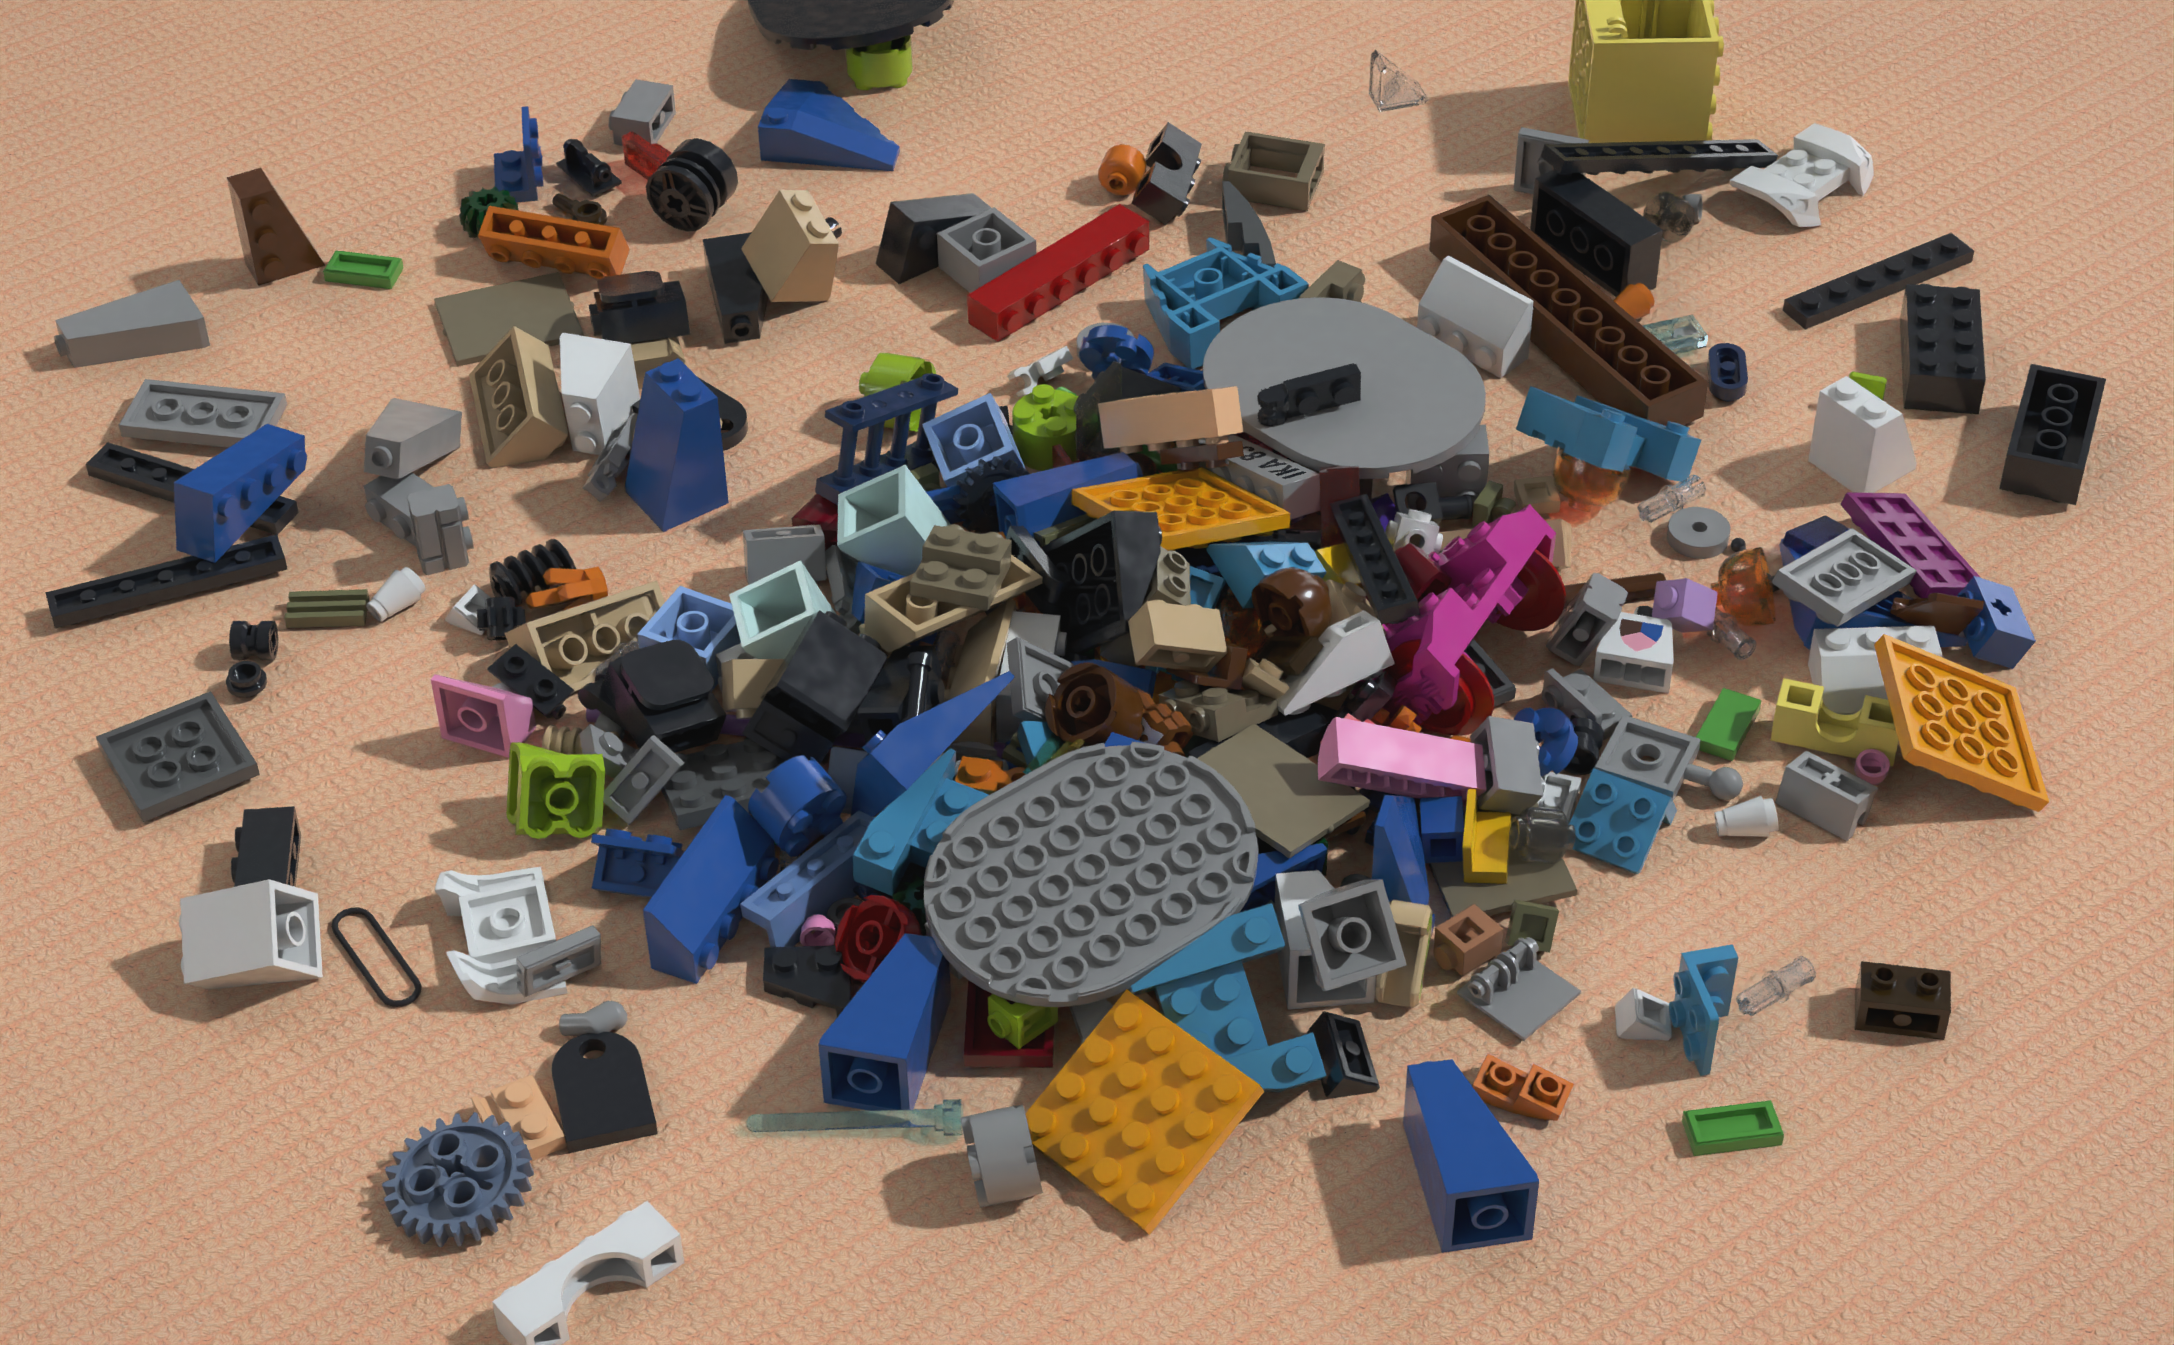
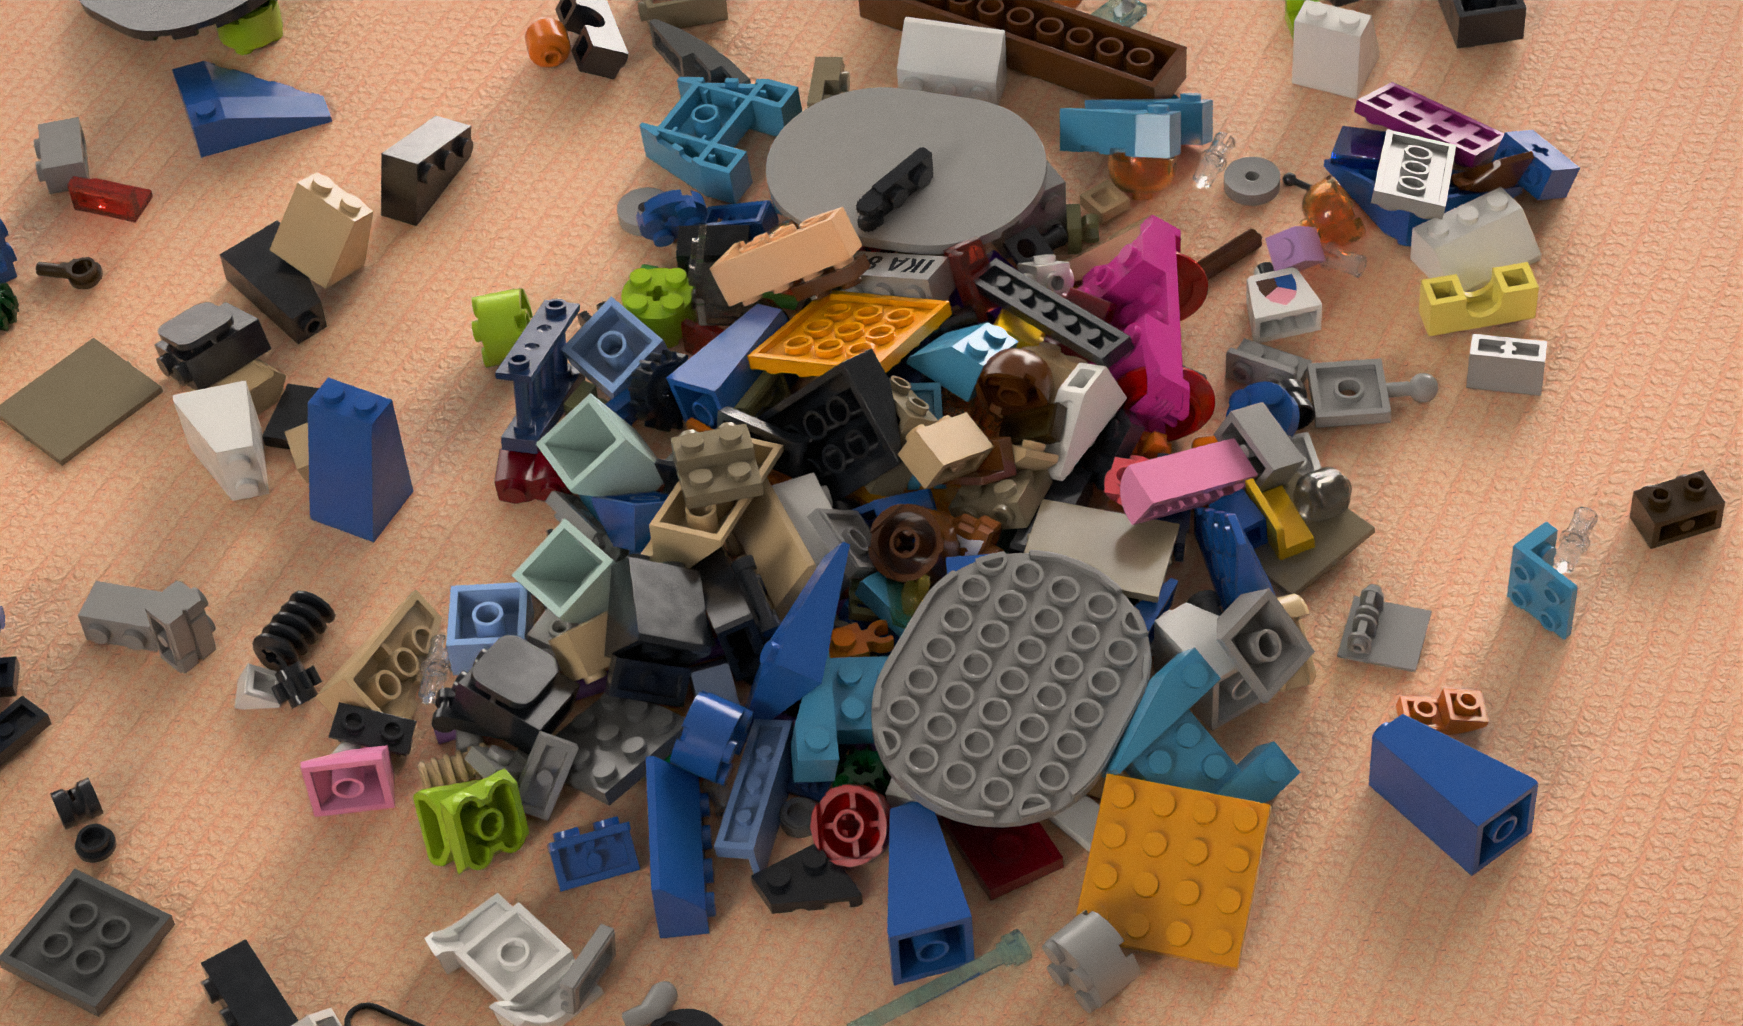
camera: 25 degrees left, 5 degrees up
(326, 608) = (116, 740): olive tile -> none
(396, 594) = (177, 703): white cone -> none
(410, 437) = (86, 552): light grey slope -> none
(518, 401) = (154, 476): tan slope -> none
(553, 242) = (77, 312): orange brick -> none
(576, 585) = (348, 627): orange rock -> none
(586, 168) = (48, 229): black hinge -> none
(611, 460) = (283, 492): light grey hinge -> none
(692, 184) = (170, 206): black wheel -> none
(780, 547) = (513, 519): light grey brick -> none
(824, 932) = (786, 841): bright pink hinge -> none
(982, 248) = (487, 167): light grey brick -> none
(1019, 1021) = (1017, 843): lime bracket -> none
(1047, 367) = (609, 251): white plate -> none
(1058, 272) = (559, 160): red brick -> none
(1344, 1056) = (1292, 743): black slope -> none
(1467, 940) = (1323, 614): nougat brick -> none
(1532, 921) = (1359, 571): olive tile -> none
(1587, 619) = (1231, 293): light grey brick -> none
(1619, 820) = (1367, 453): dark azure bracket -> none
(1642, 1017) = (1490, 611): white slope -> none
(1727, 371) = (1180, 27): dark blue plate -> none
(1728, 724) = (1388, 335): bright green tile -> none
(1732, 1128) = (1619, 671): bright green tile -> none
(1749, 818) = (1461, 409): white cone -> none
(1869, 765) = (1521, 320): bright pink hinge -> none
(1960, 723) = (1574, 261): light orange plate -> none

